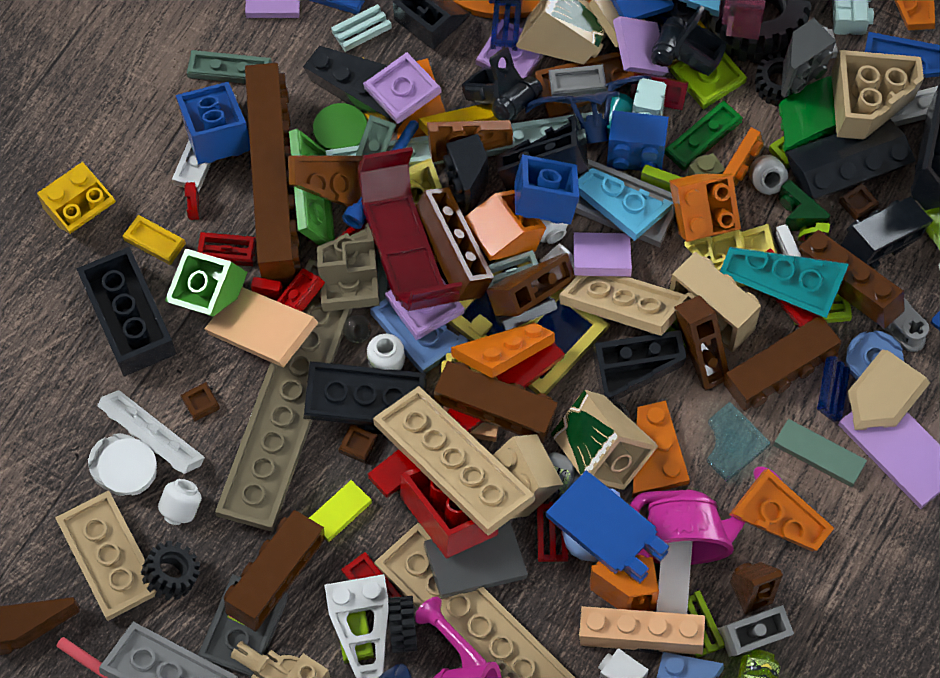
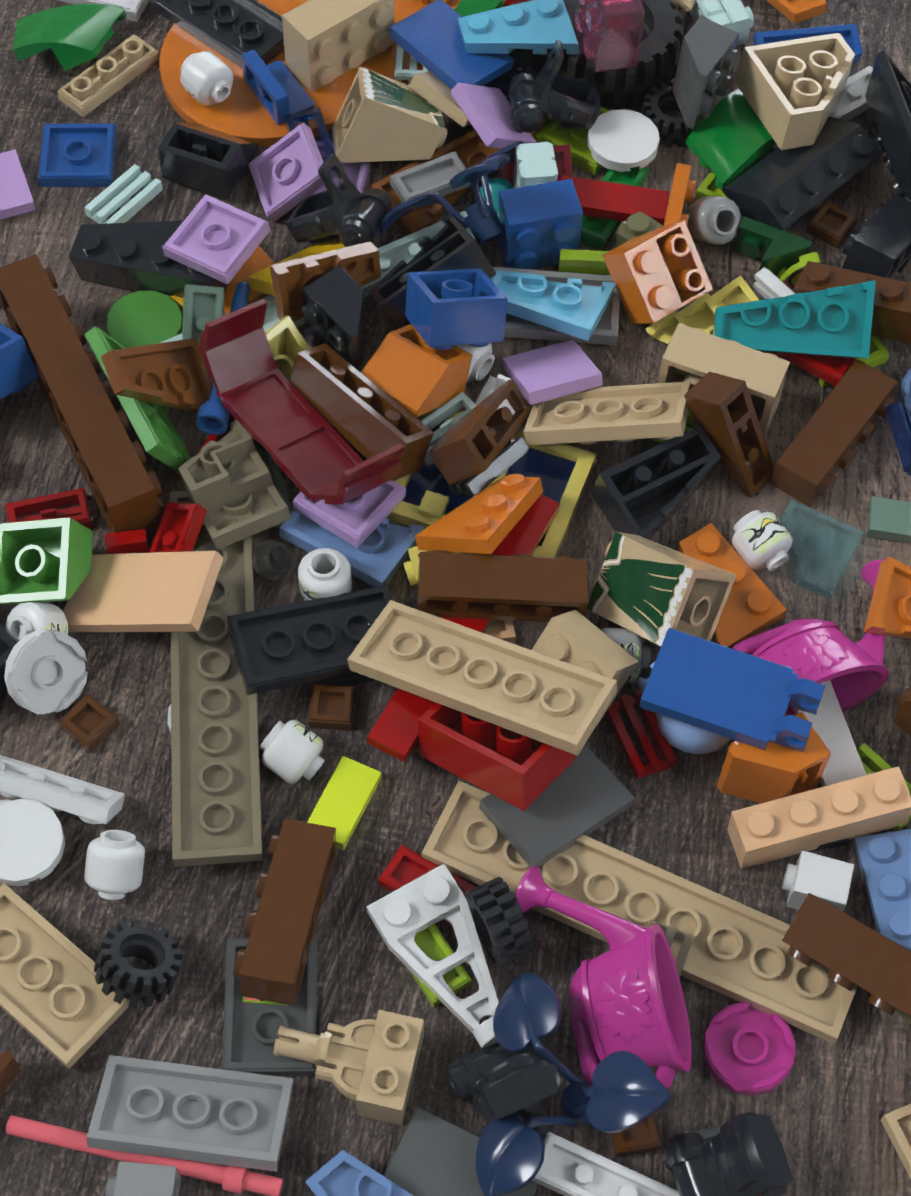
camera: 25 degrees left, 5 degrees down
(182, 359) = (46, 671): none -> white tile
(188, 328) = (34, 616): none -> white head
(319, 466) = (292, 751): none -> white head
(479, 42) = (287, 172): none -> lavender tile
(693, 425) = (762, 540): none -> white head
(701, 135) = (619, 200): none -> red tile
(731, 90) = (623, 140): none -> white tile

